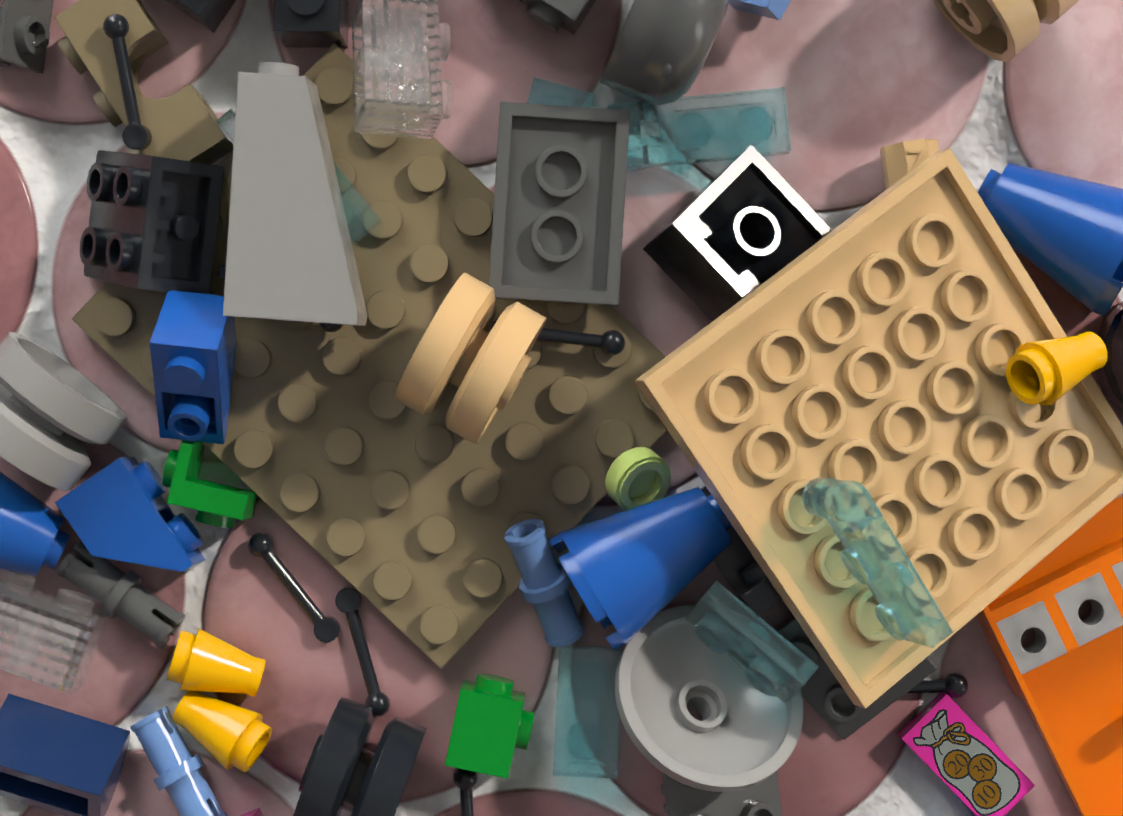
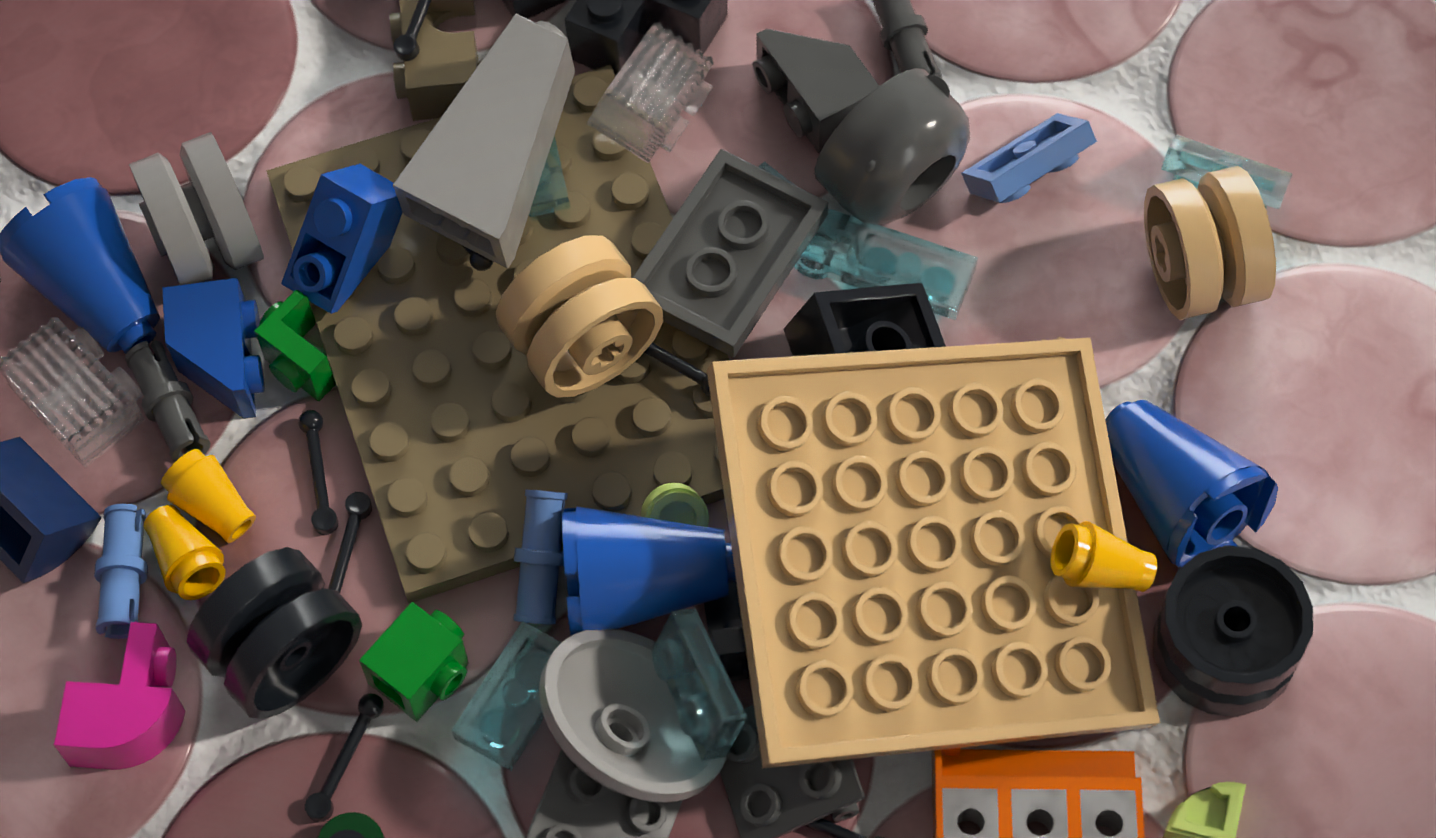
camera: 30 degrees right, 25 degrees down
(152, 222) = (380, 114): black bracket -> none
(877, 560) = (844, 616): clear light blue plate -> none

